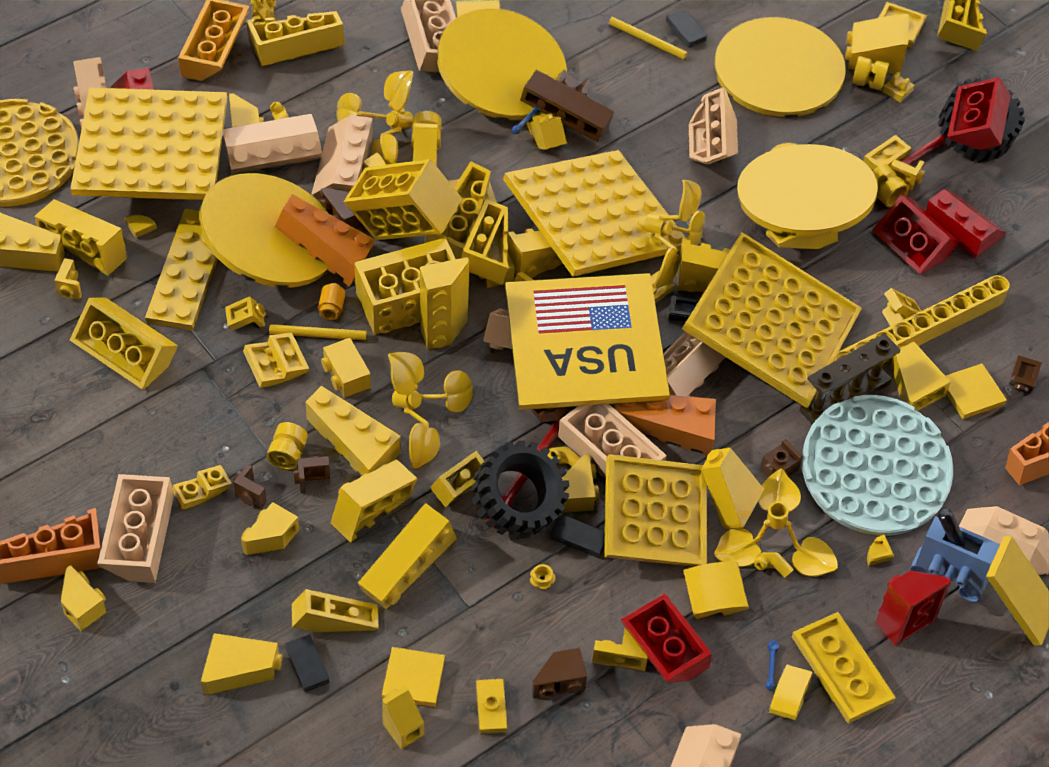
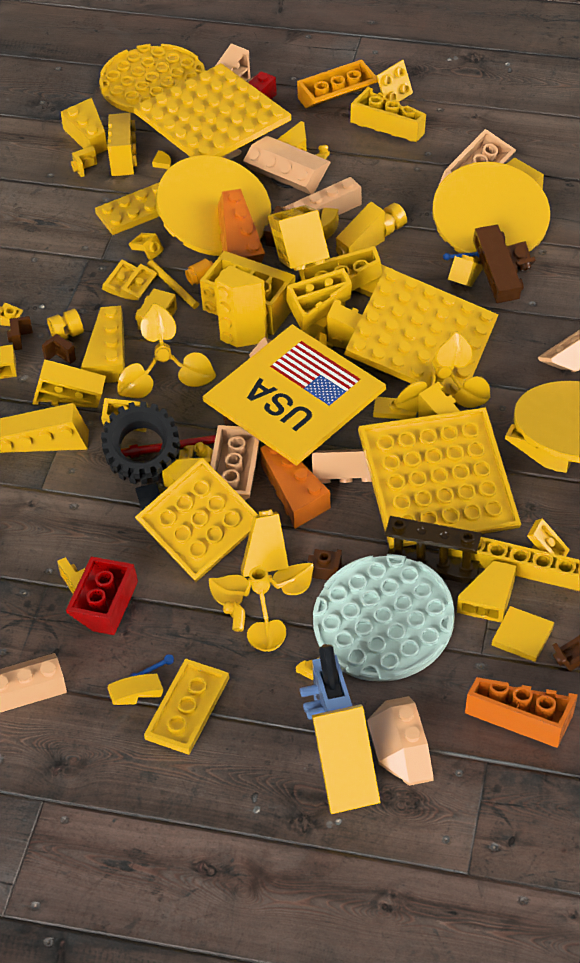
camera: 55 degrees right, 5 degrees down
(123, 342) = (66, 211): yellow slope -> none
(397, 92) = (381, 198): yellow plant -> none
(542, 571) = (97, 505): yellow plate -> none
(561, 674) = (28, 560): reddish brown slope -> none
(716, 589) = (180, 597): yellow slope -> none
(911, 604) = (263, 702): red slope -> none

